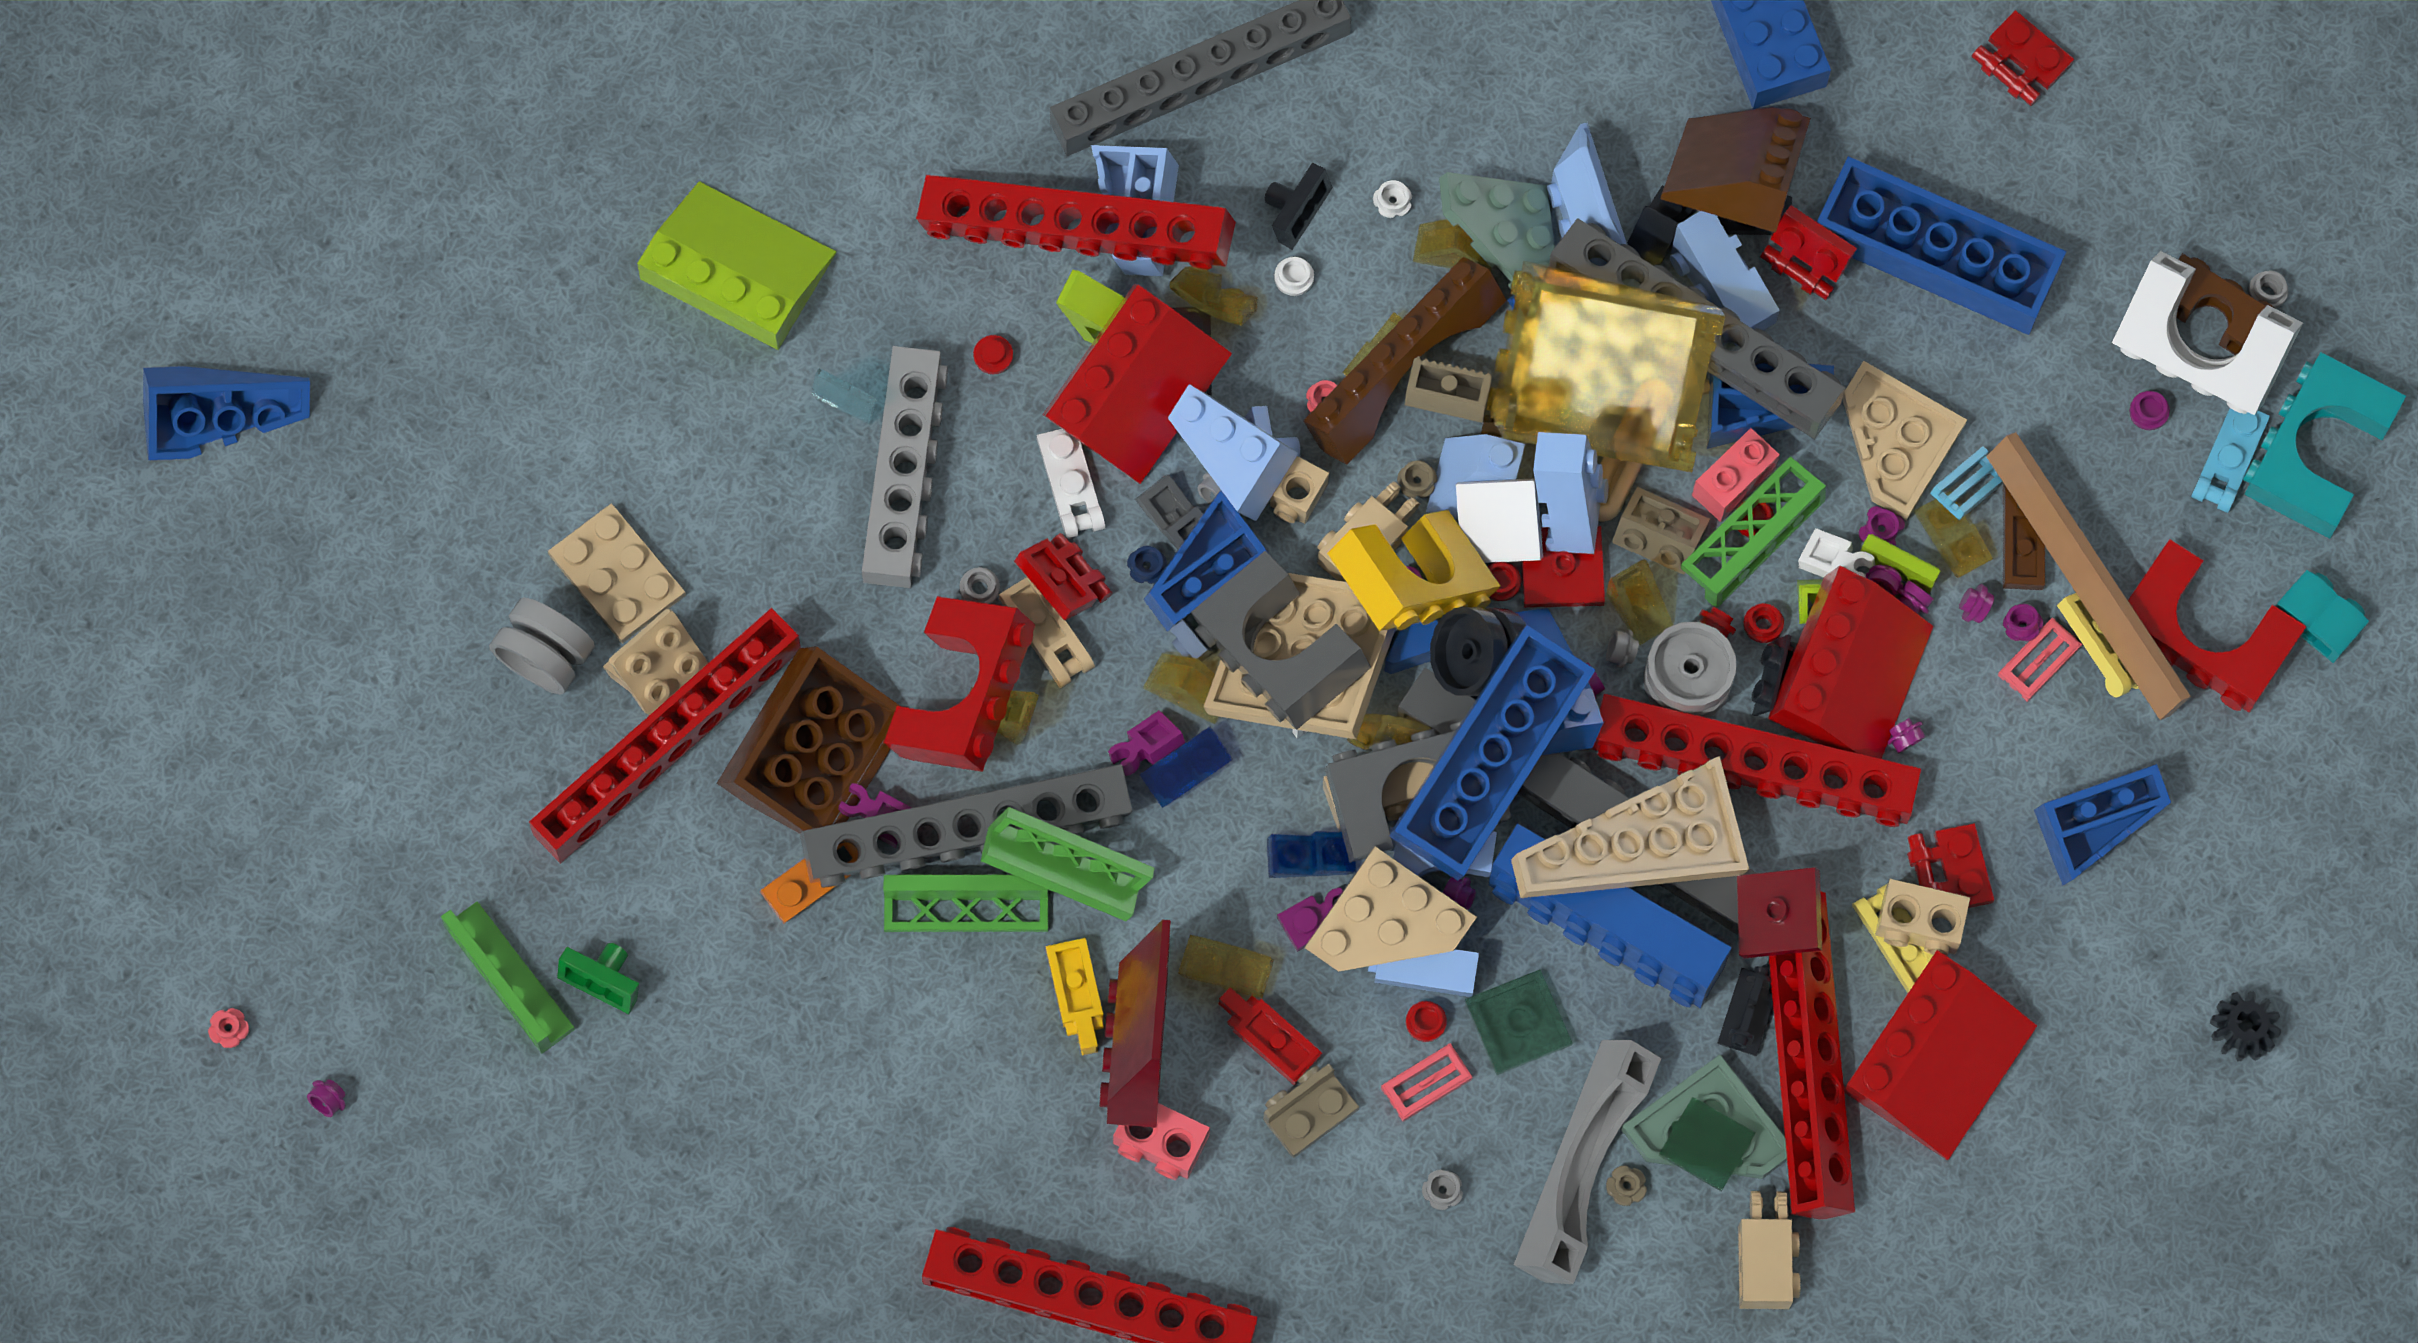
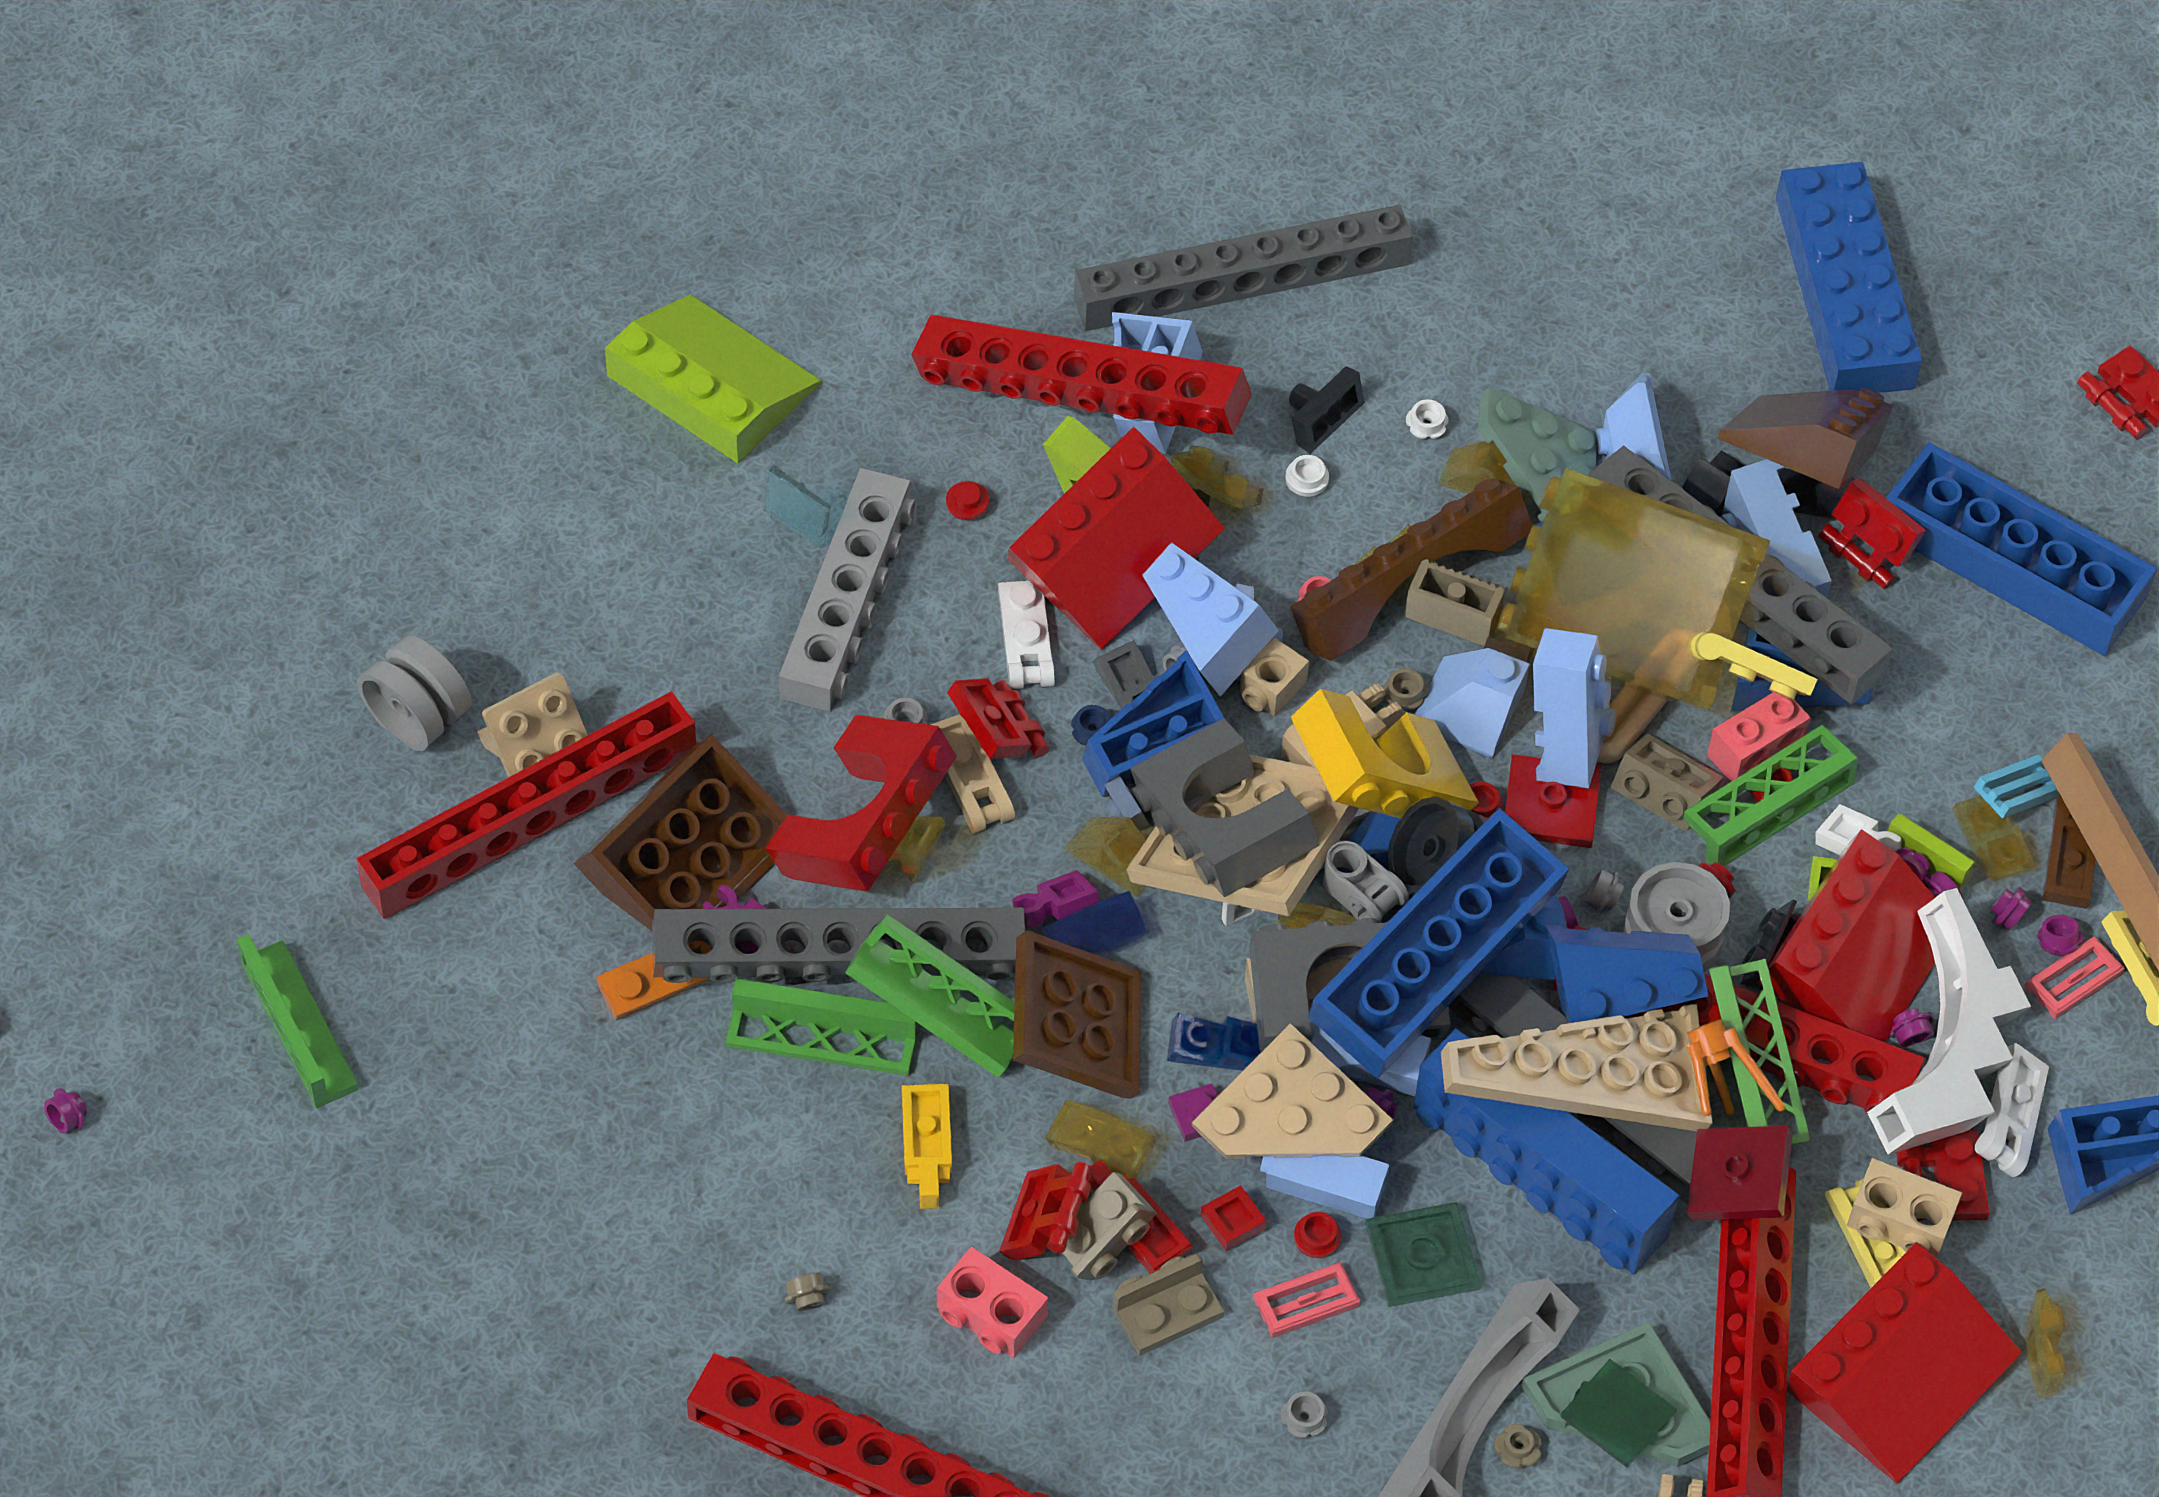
camera: 10 degrees right, 15 degrees down
(201, 405) = (115, 417): blue wedge -> none
(600, 977) = (398, 1038): green tile -> none
(616, 573) = (512, 640): tan plate -> none
(1001, 1152) = (806, 1291): none -> dark tan plate
(1137, 1032) = (987, 1179): dark red slope -> none
(1184, 1040) = (1036, 1216): none -> red plate
(1186, 857) = (1077, 1015): none -> reddish brown plate
(1243, 1052) = (1107, 1224): none -> dark tan bracket
(1352, 1019) = (1233, 1218): none -> red plate
(1415, 695) = (1369, 888): none -> light grey piece
(1501, 519) = (1491, 735): white tile -> none
(1639, 601) = (1628, 839): clear yellow slope -> none
(1654, 743) = (1623, 972): none -> blue wedge
(1720, 420) = (1749, 664): none -> light yellow plate
(1739, 801) = (1710, 1046): none -> orange plant
(1748, 1011) = (1688, 1284): black hinge -> none
(1763, 611) = (1767, 879): red plate -> none
(1764, 797) = (1731, 1017): none -> bright green fence
(1882, 517) = (1917, 807): magenta plate -> none
(1897, 437) = (1945, 730): tan plate -> none
(1956, 748) = (1968, 1043): none -> white arch
(2003, 799) = (2016, 1108): none -> white plate
(2052, 1002) = (2043, 1332): none -> clear yellow slope

